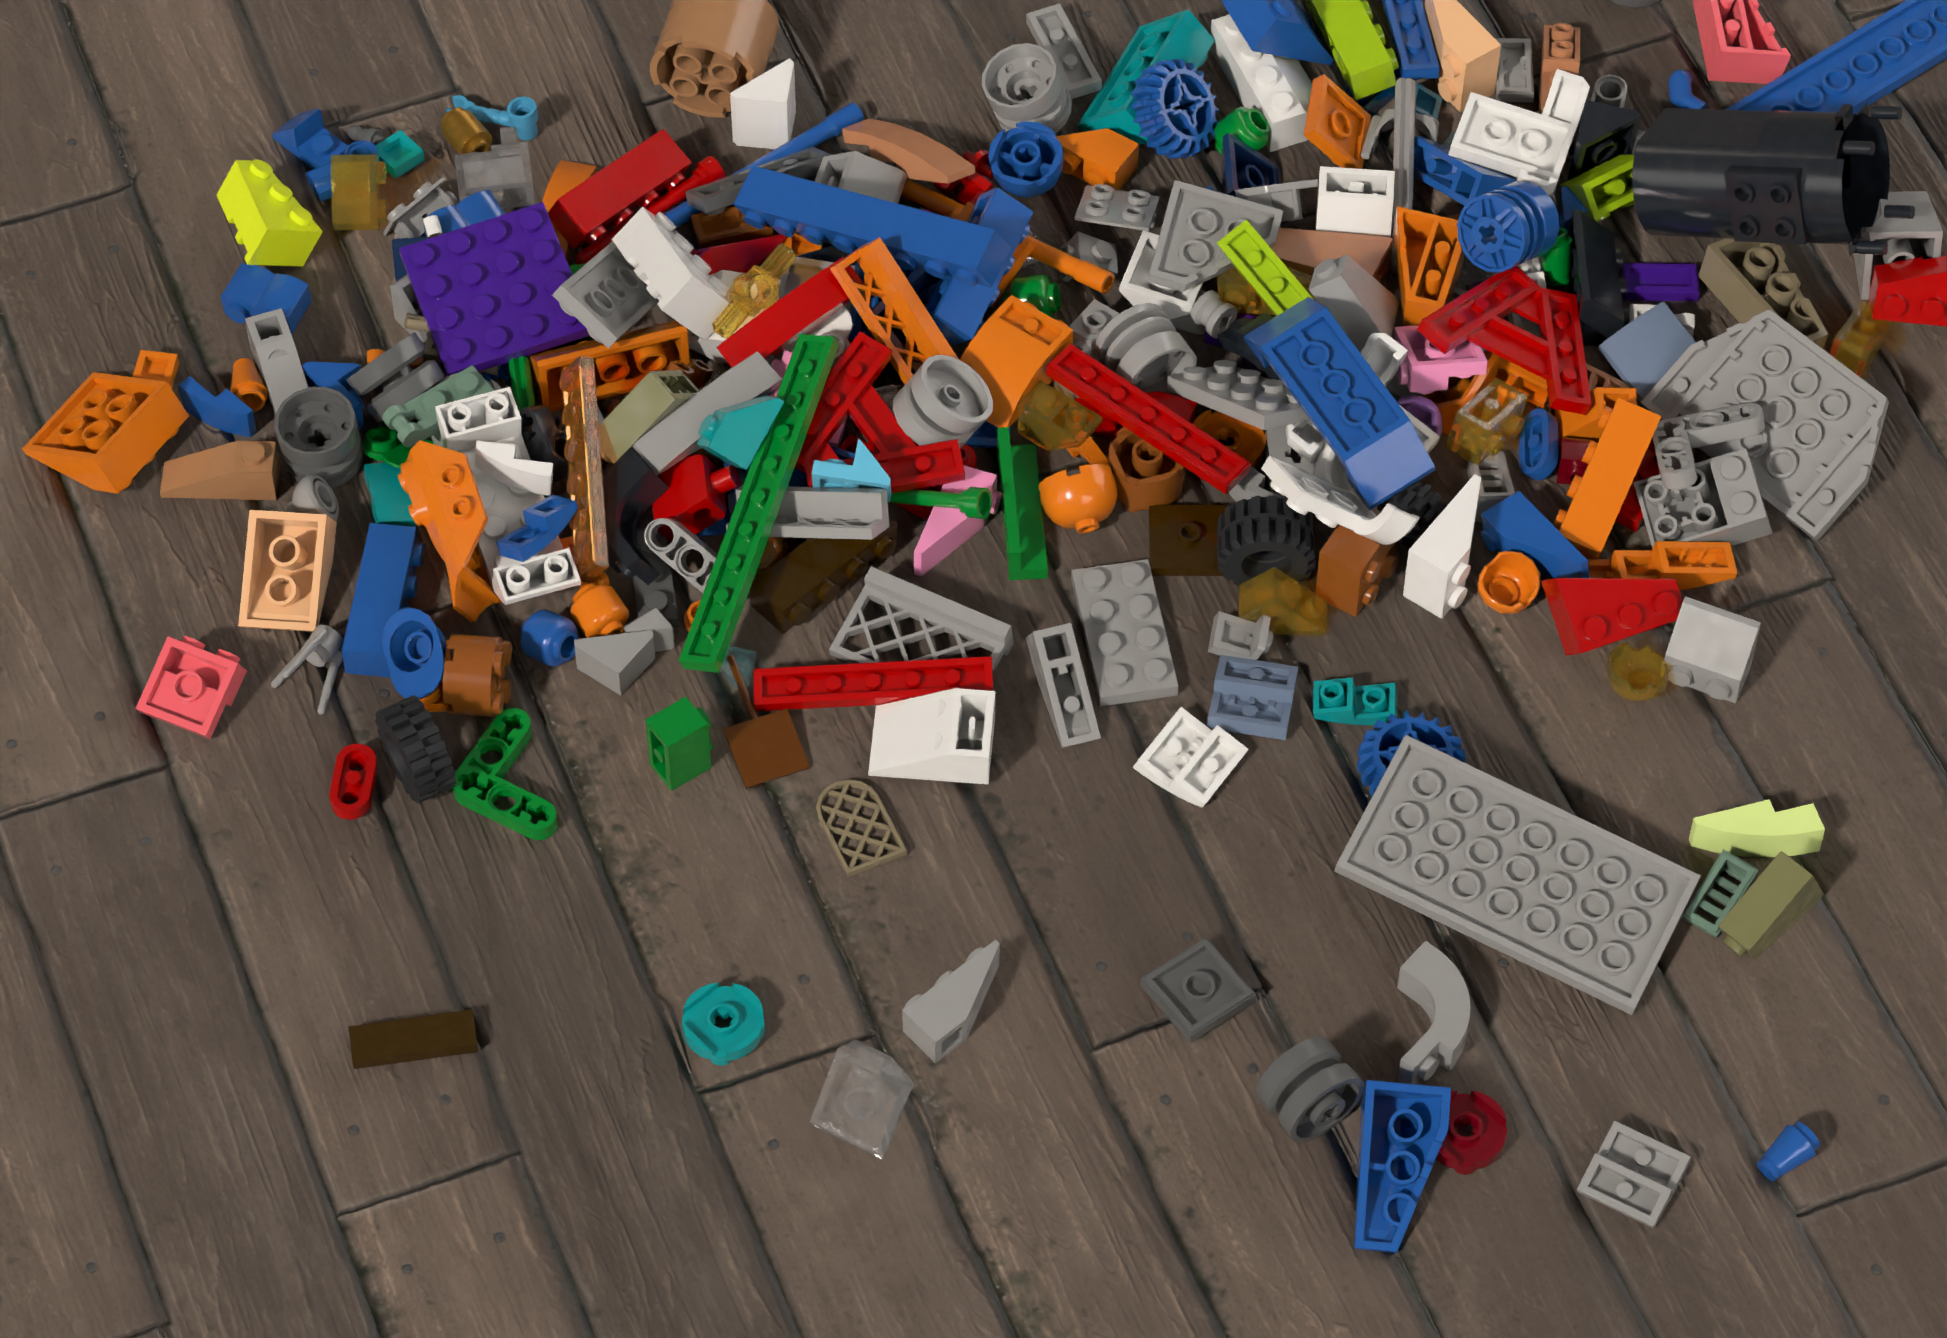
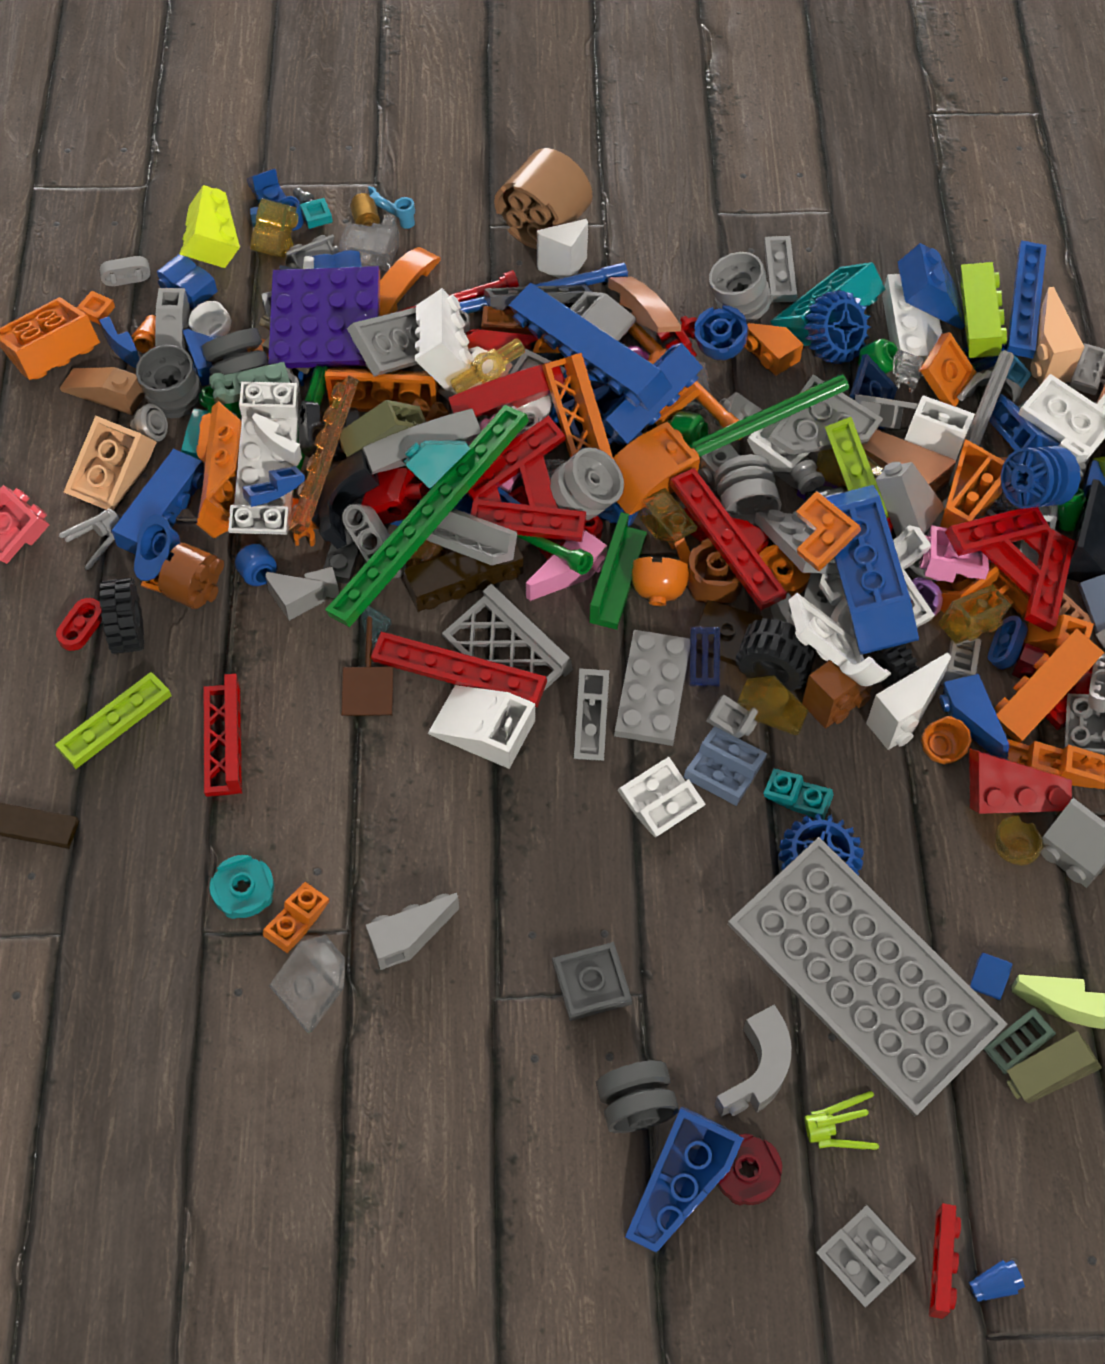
camera: 20 degrees right, 5 degrees up
(170, 310) = (125, 271): none -> light grey beam
(329, 340) = (210, 319): none -> white hair
(459, 882) = (113, 720): none -> lime plate
(493, 786) = (171, 650): green beam -> none
(599, 611) = (296, 556): orange head -> none
(619, 189) = (450, 271): red brick -> none
(621, 848) = (229, 738): none -> red fence
(679, 743) = (303, 668): green brick -> none
(805, 1036) = (296, 918): none -> orange slope
(862, 474) = (506, 516): medium azure slope -> none
(898, 851) = (394, 753): dark tan window -> none
(1117, 208) = (770, 383): light grey hinge -> none
(1142, 248) = (771, 415): none -> green axle
(1185, 605) = (705, 681): none -> clear blue tile
(1284, 368) = (831, 531): none -> orange plate
(1285, 138) = (907, 368): none -> clear plate
(1532, 1055) = (821, 1124): none -> lime plant
(1662, 832) = (990, 975): none -> blue slope
(1722, 1149) = (944, 1262): none -> red plate

